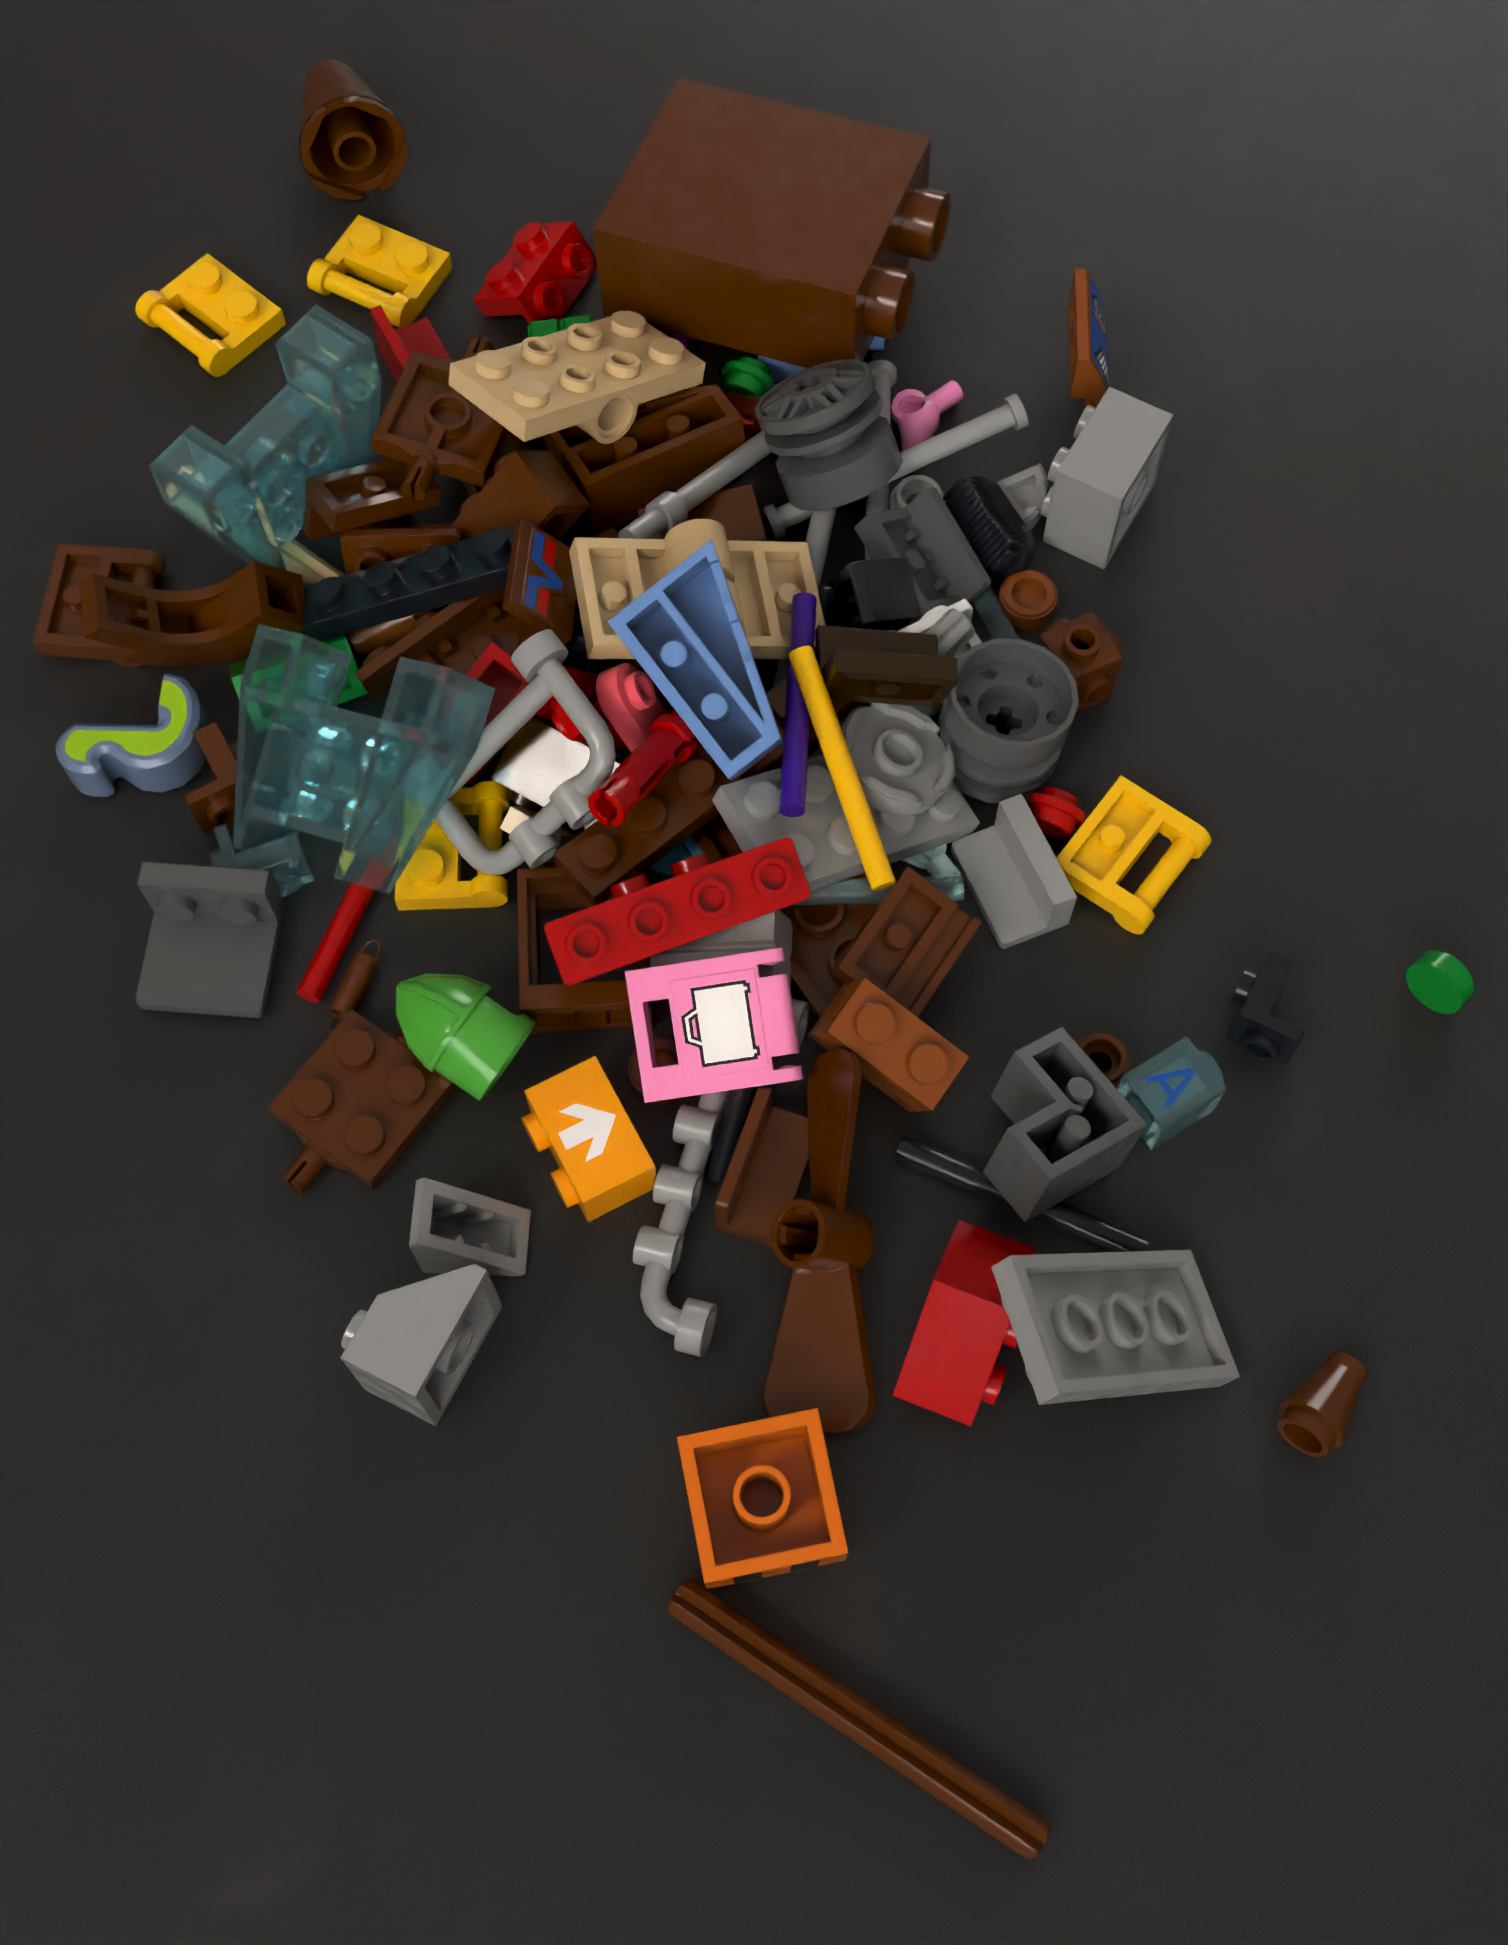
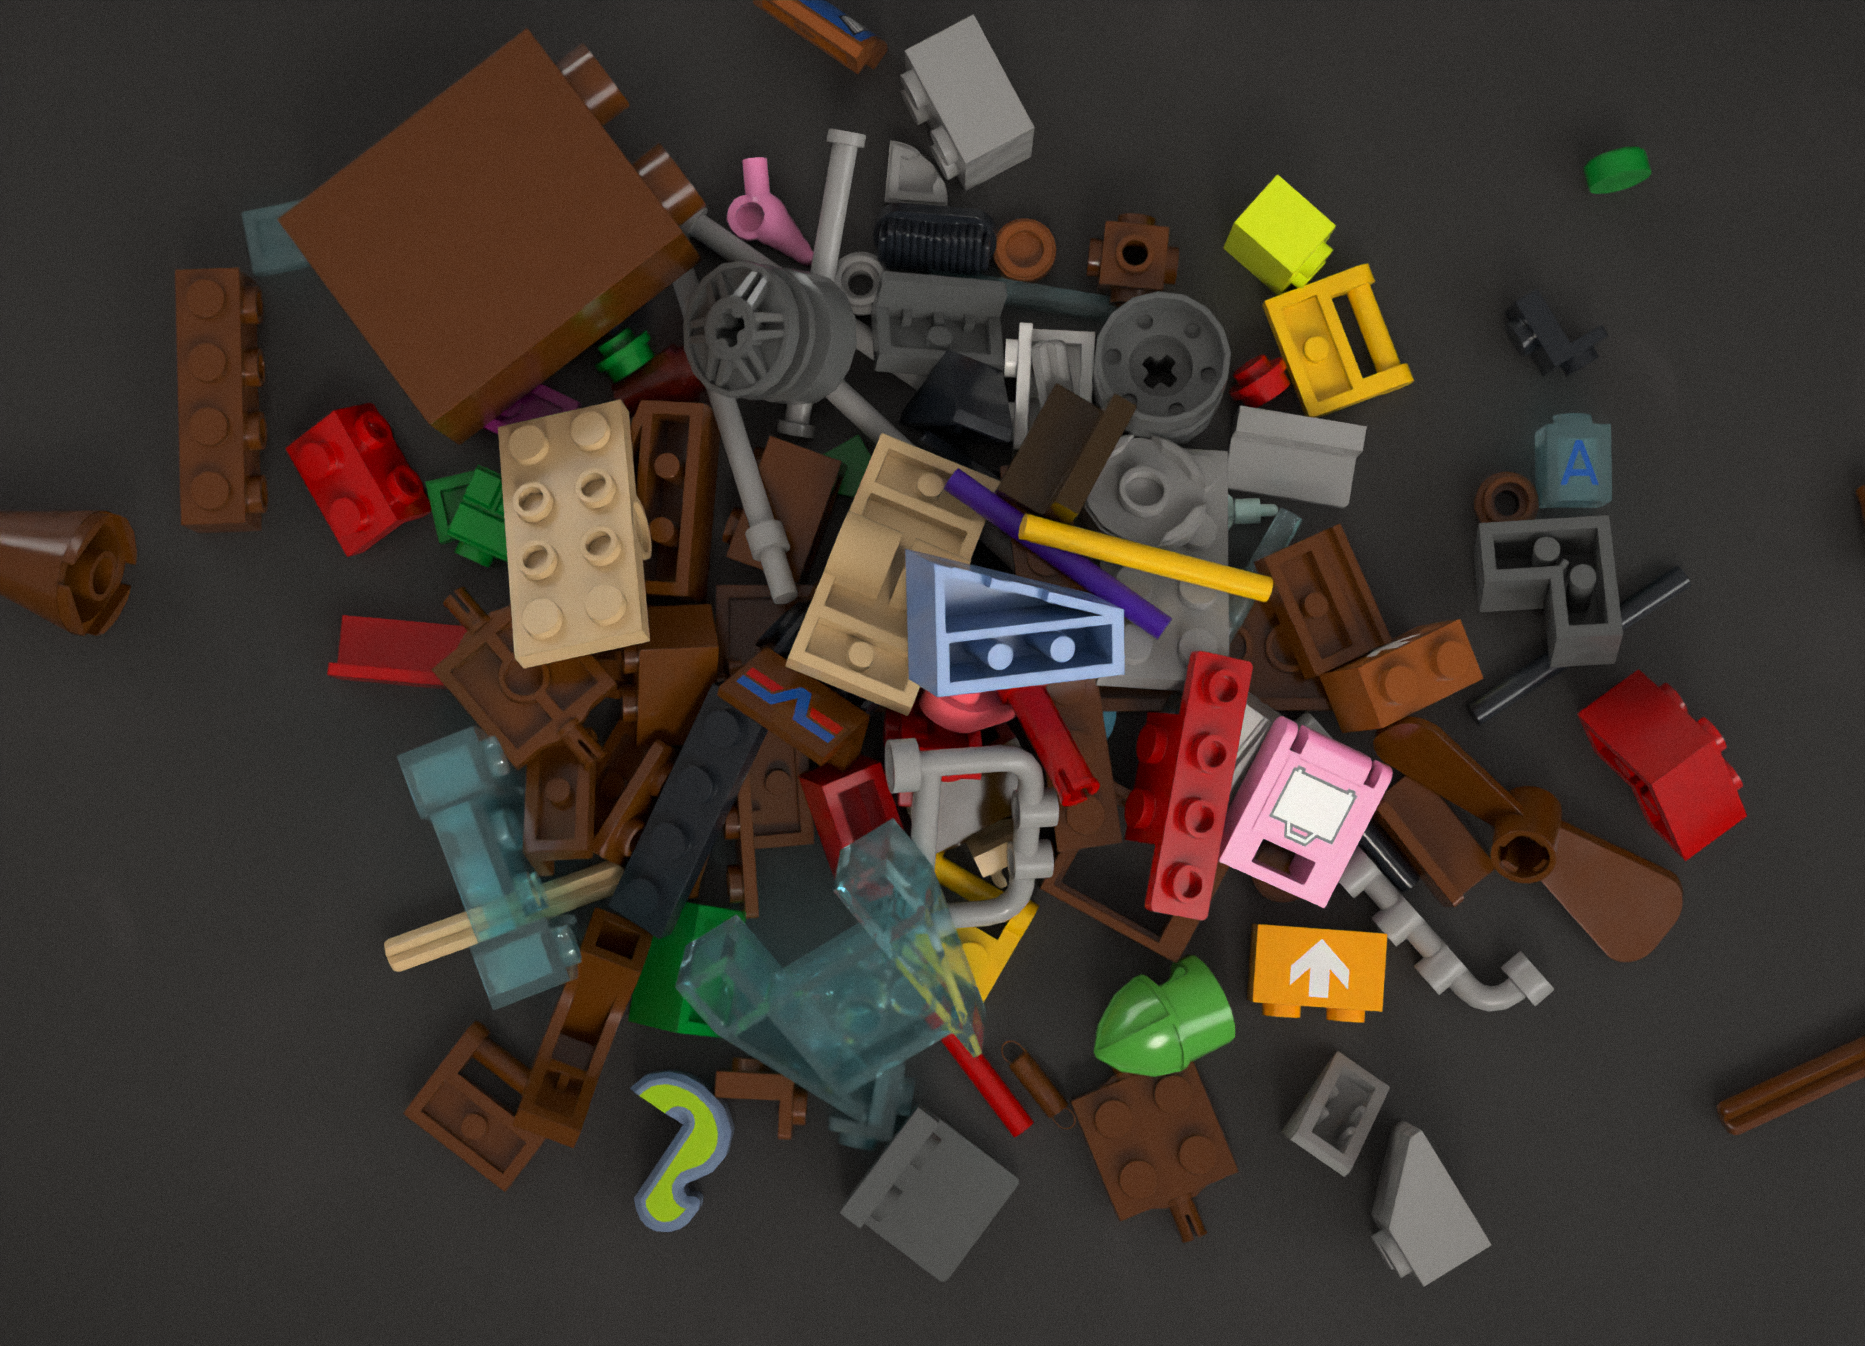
camera: 55 degrees left, 20 degrees up
(222, 304) = (189, 803): yellow plate -> none
(387, 260) = (236, 610): yellow plate -> none
(531, 164) = (220, 400): none -> reddish brown brick
(762, 1498) = (1707, 1015): orange brick -> none
(1113, 1324) = (1757, 658): light grey plate -> none
(1180, 740) = (1281, 238): none -> neon yellow brick

